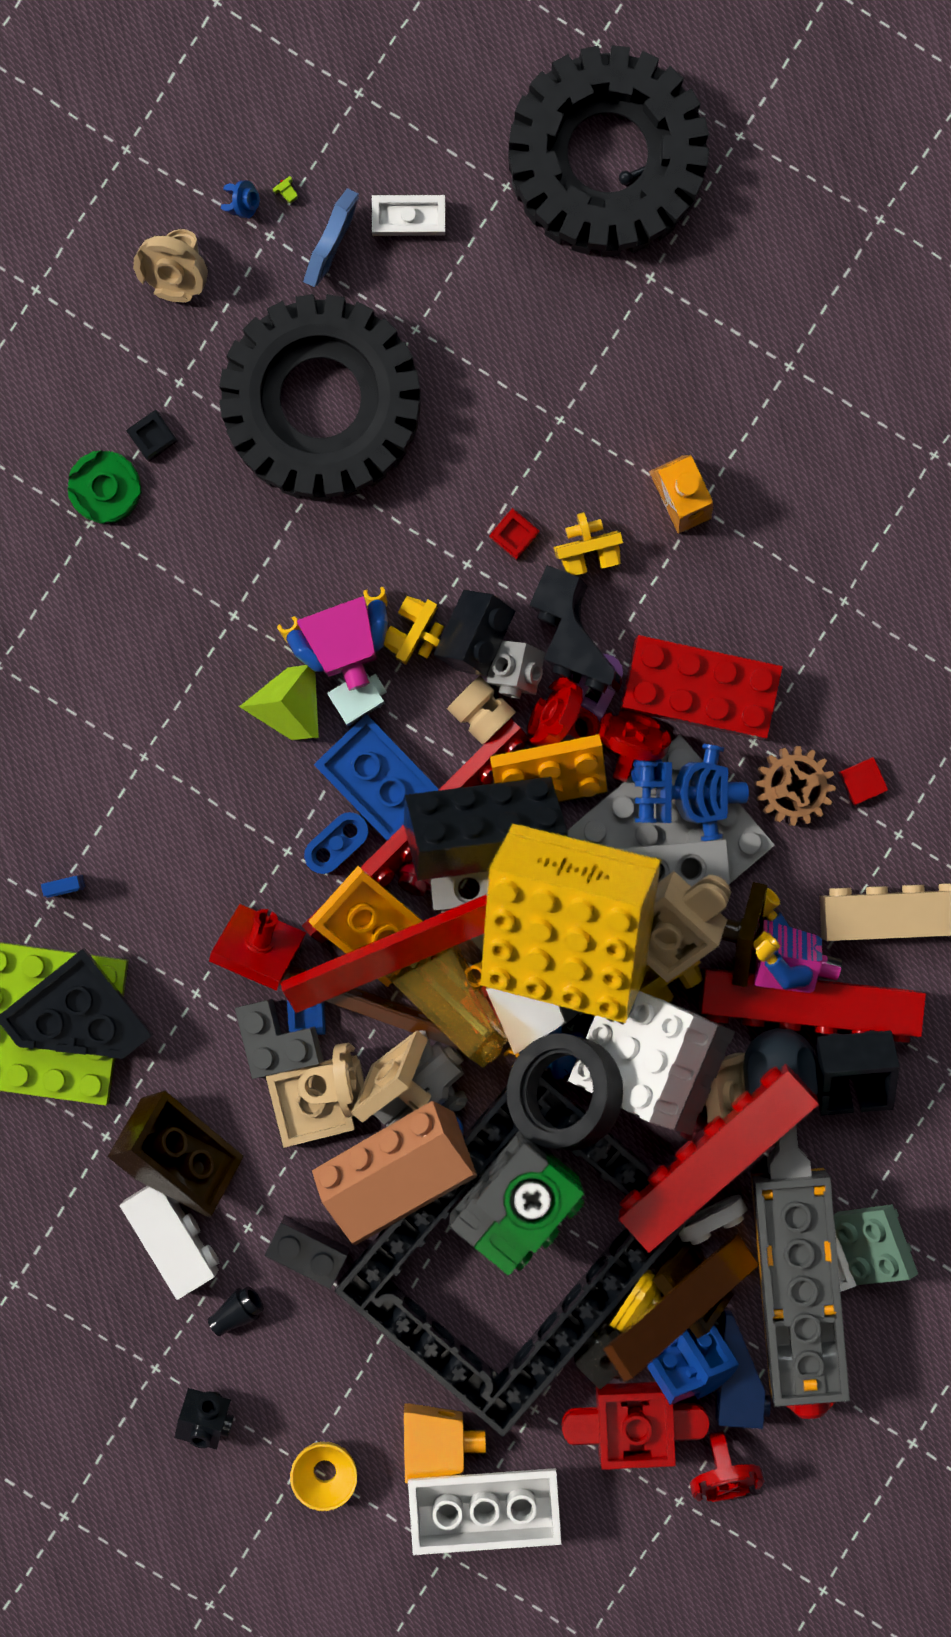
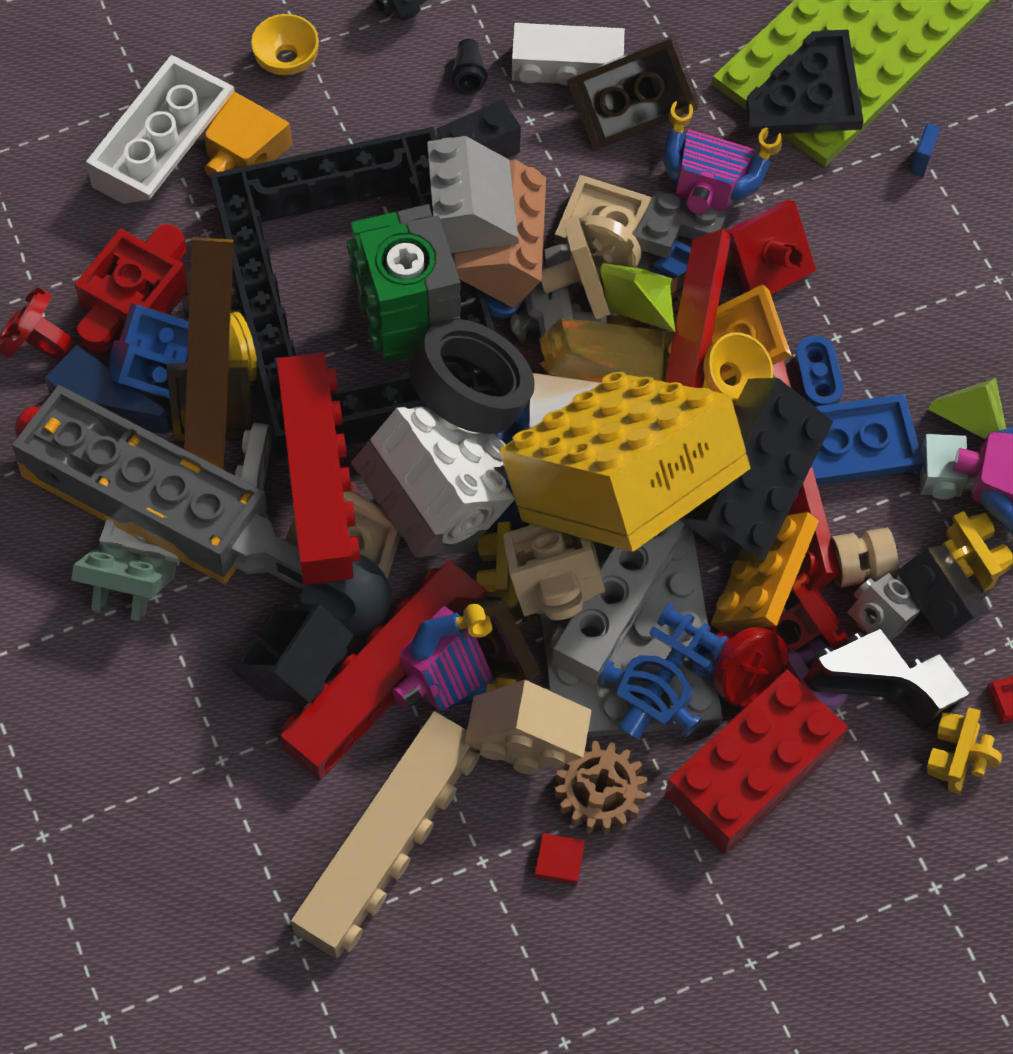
camera: 125 degrees right, 25 degrees down
(207, 1044) = (711, 168): none -> torso
(375, 1019) = (639, 295): none -> lime slope
(397, 1207) = (472, 194): none -> light grey slope
(400, 882) = (743, 355): none -> yellow piece
(683, 492) = (964, 868): light orange torso -> none
(801, 861) = (528, 727): none -> tan brick

